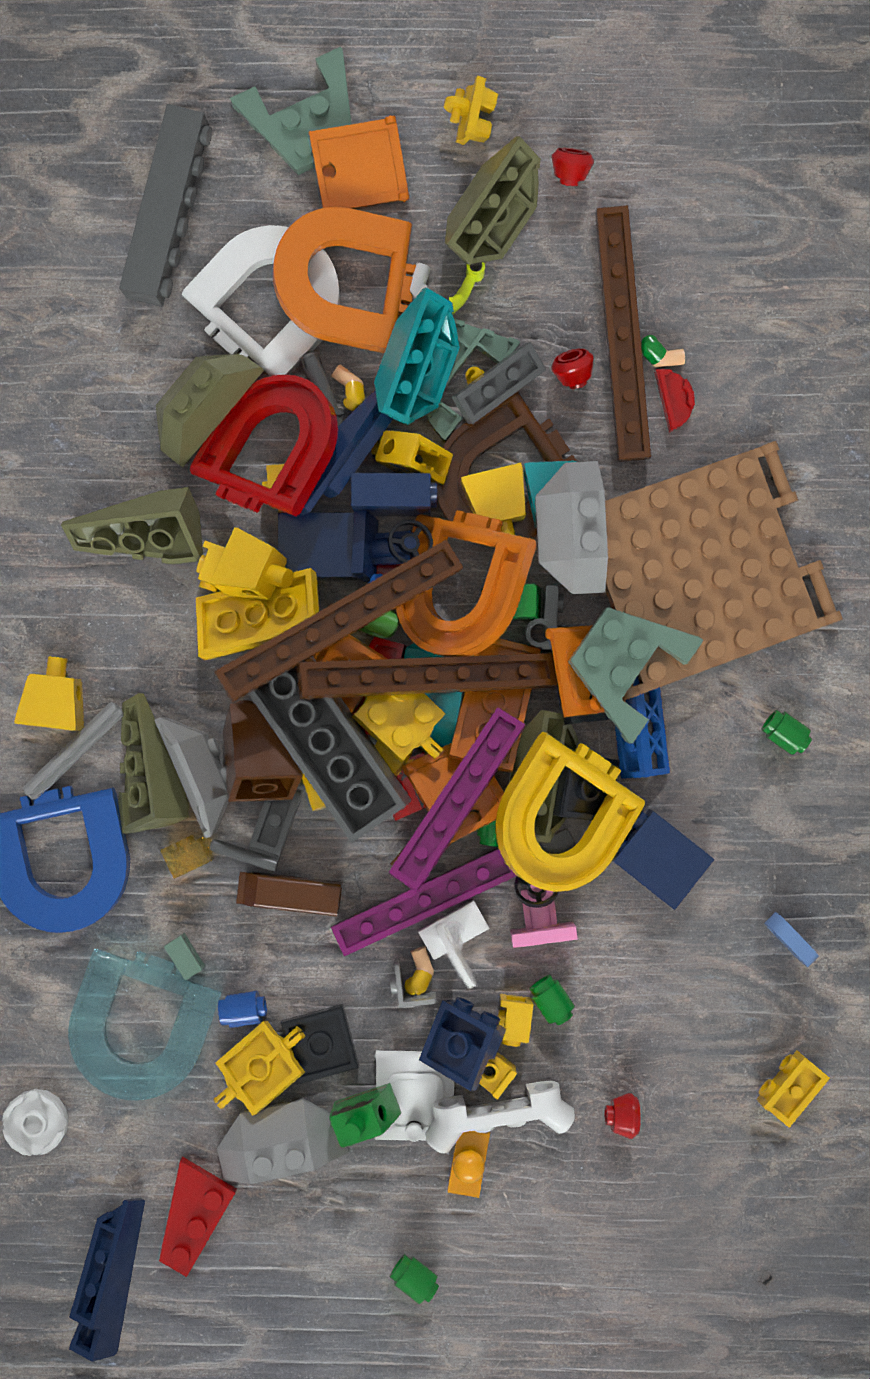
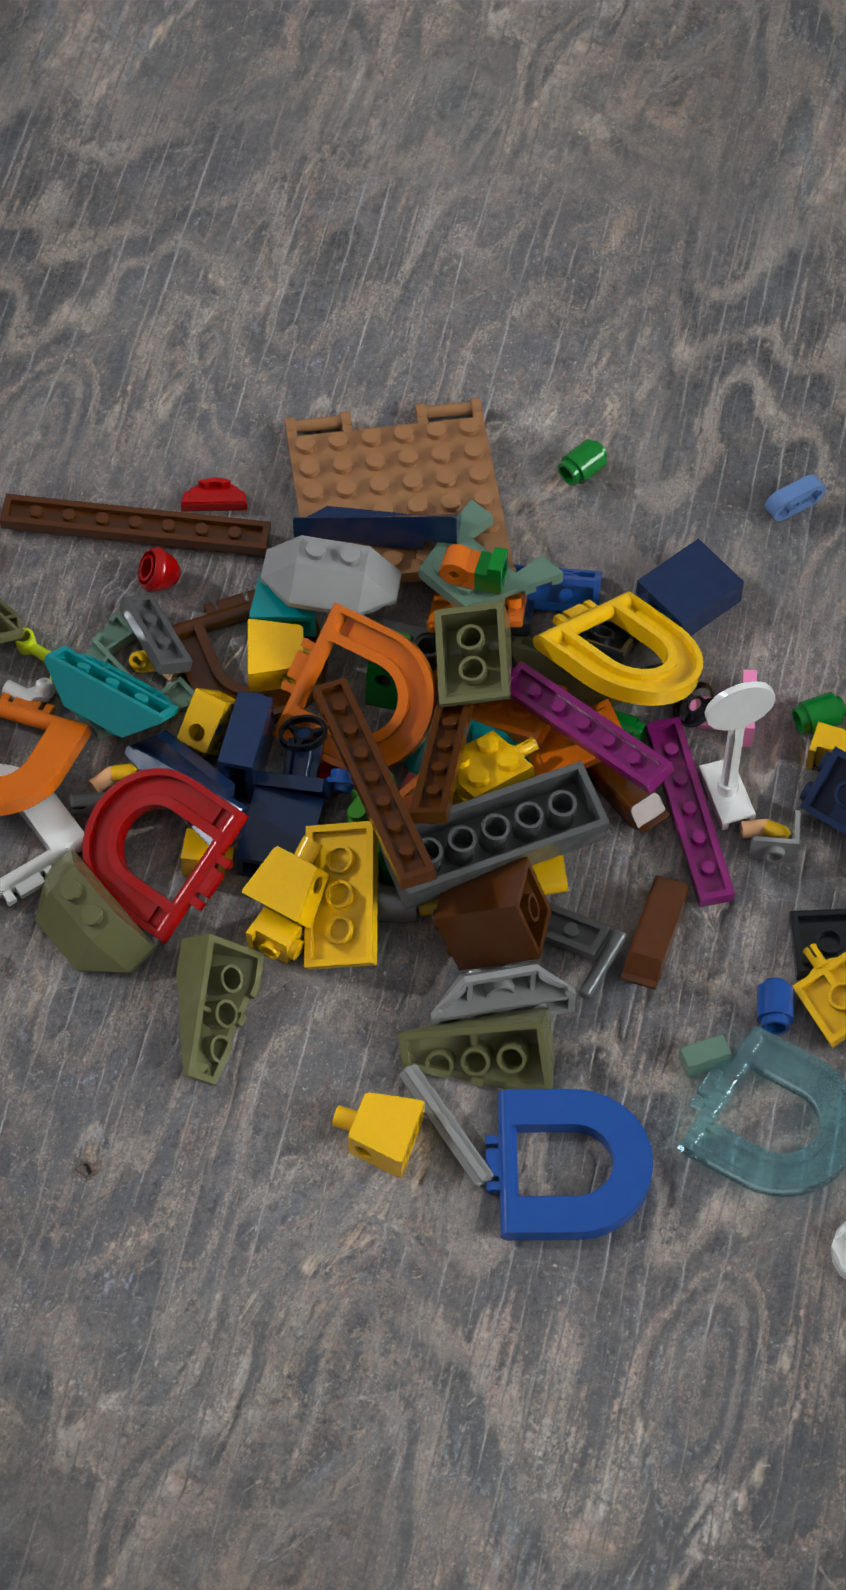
camera: 80 degrees left, 30 degrees down
(188, 855) = (591, 1026): clear yellow brick -> none
(507, 681) = (473, 654): none -> olive slope
(606, 661) = (475, 568): none -> leg
(652, 560) = (378, 527): none -> dark blue wedge
(658, 355) = (166, 499): arm -> none

